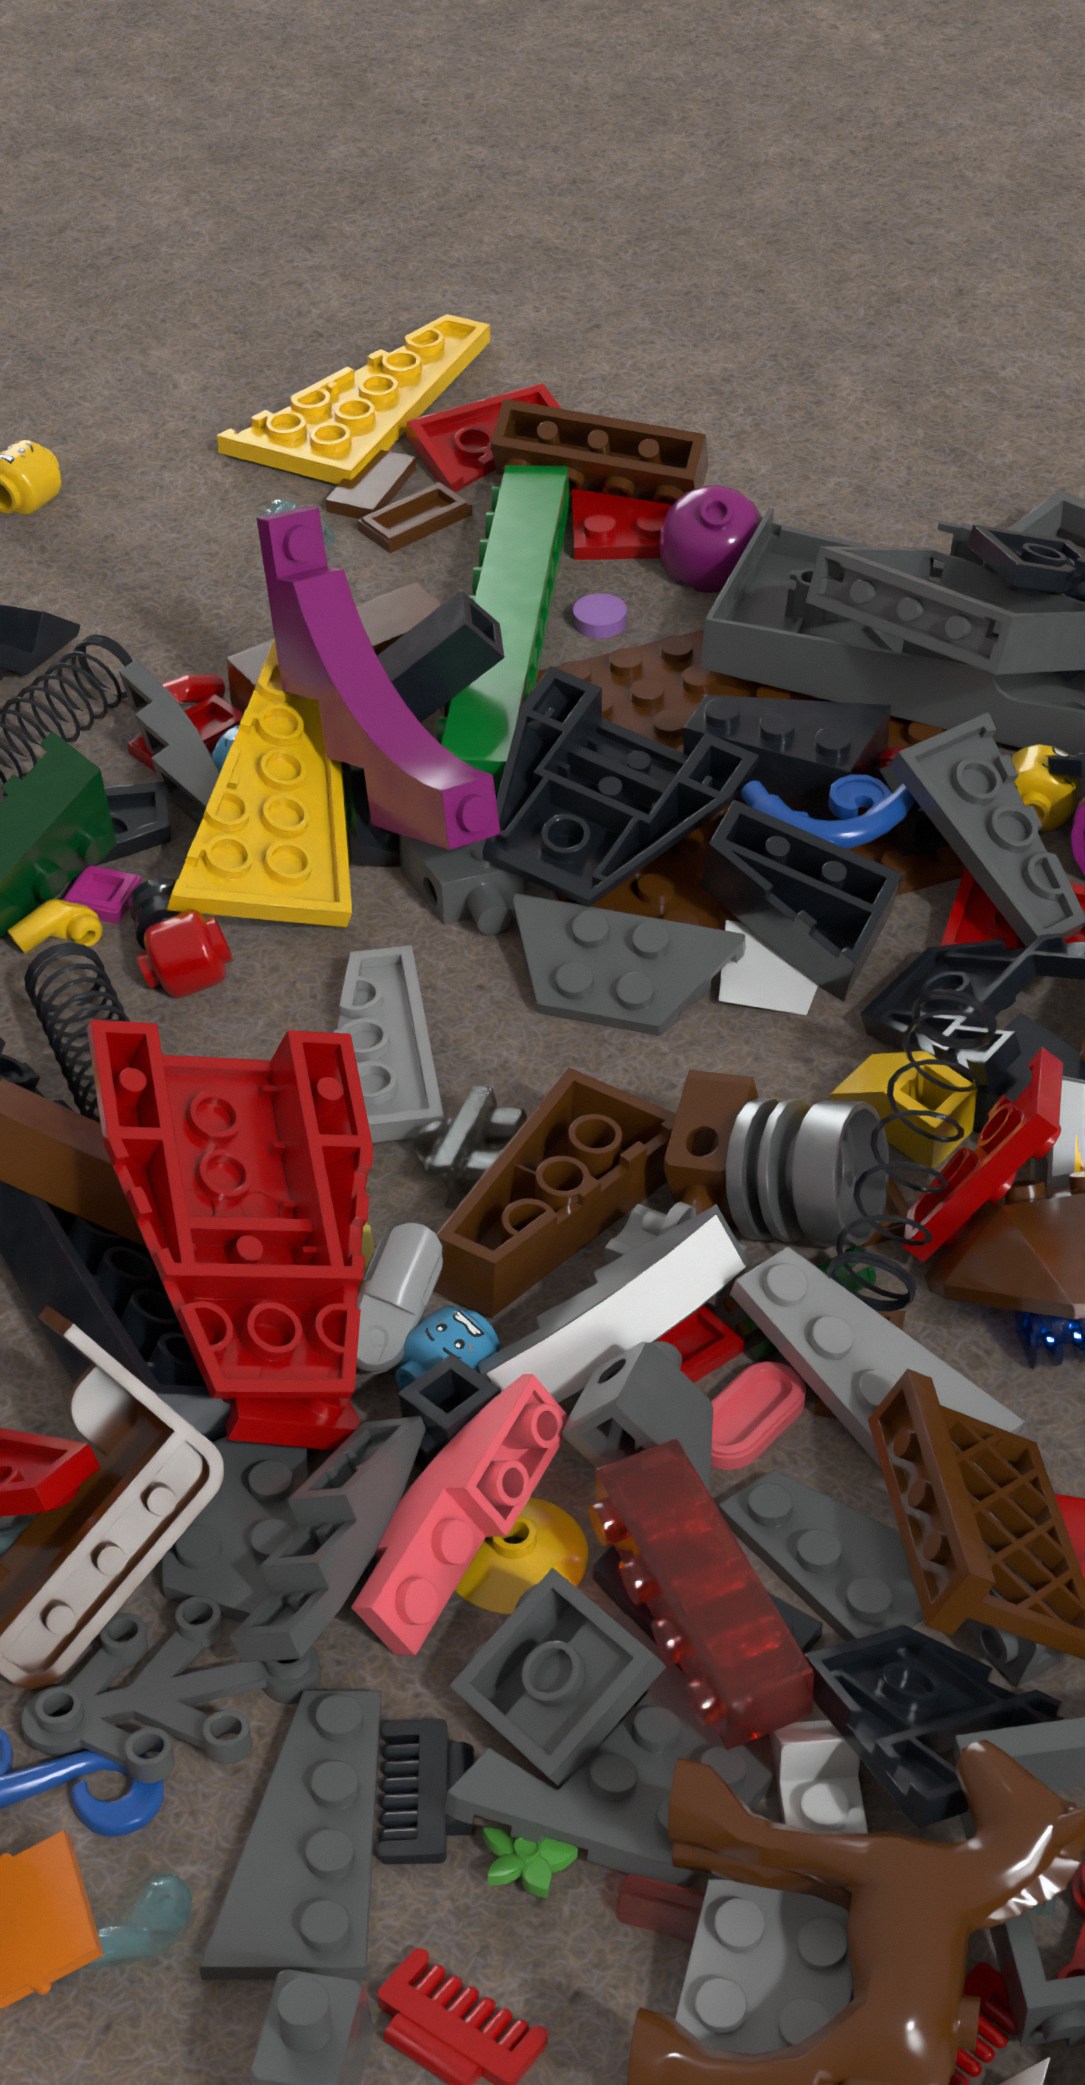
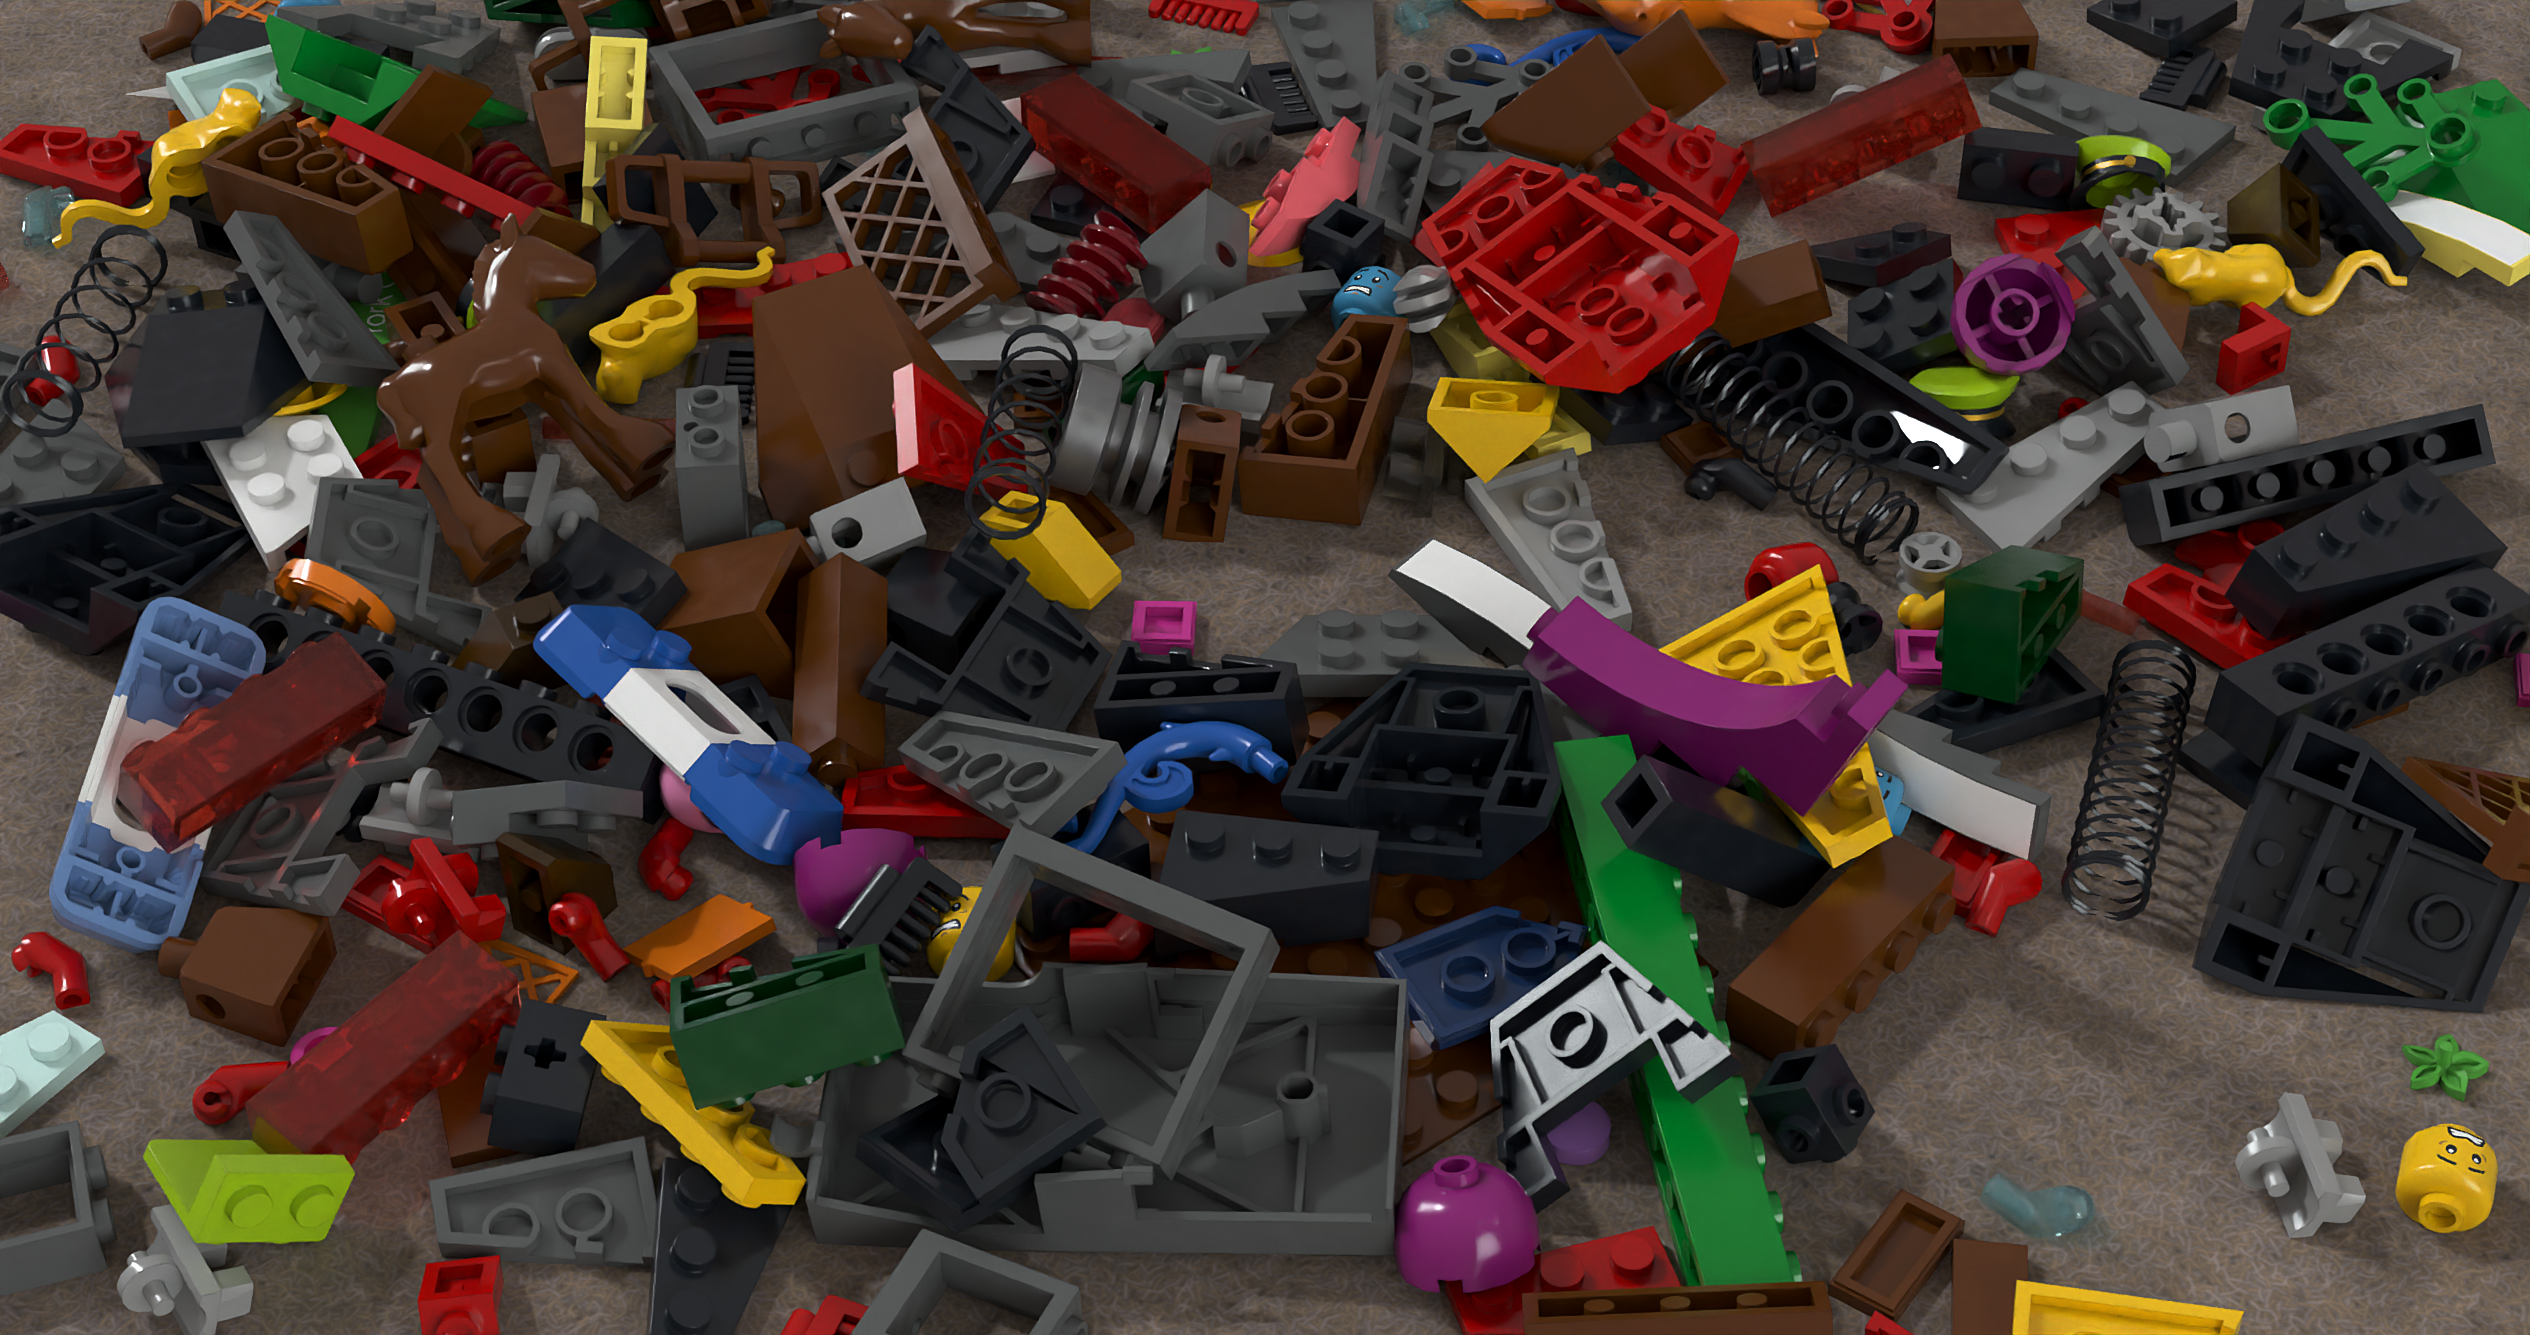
camera: 165 degrees right, 0 degrees up
(40, 935) = (1925, 562): none -> light grey wheel
(112, 502) = (2295, 1166): none -> light grey hips
(410, 1111) = (1491, 419): none -> yellow slope
(431, 559) = (1812, 1105): none -> black brick
(475, 969) = (1471, 600): none -> slope
(575, 588) = (1578, 1041): none -> black wing
(643, 687) = (1476, 969): none -> dark blue tile
(782, 1428) = (1090, 270): none -> dark red piece
(798, 1054) = (1164, 625): none -> dark pink tile

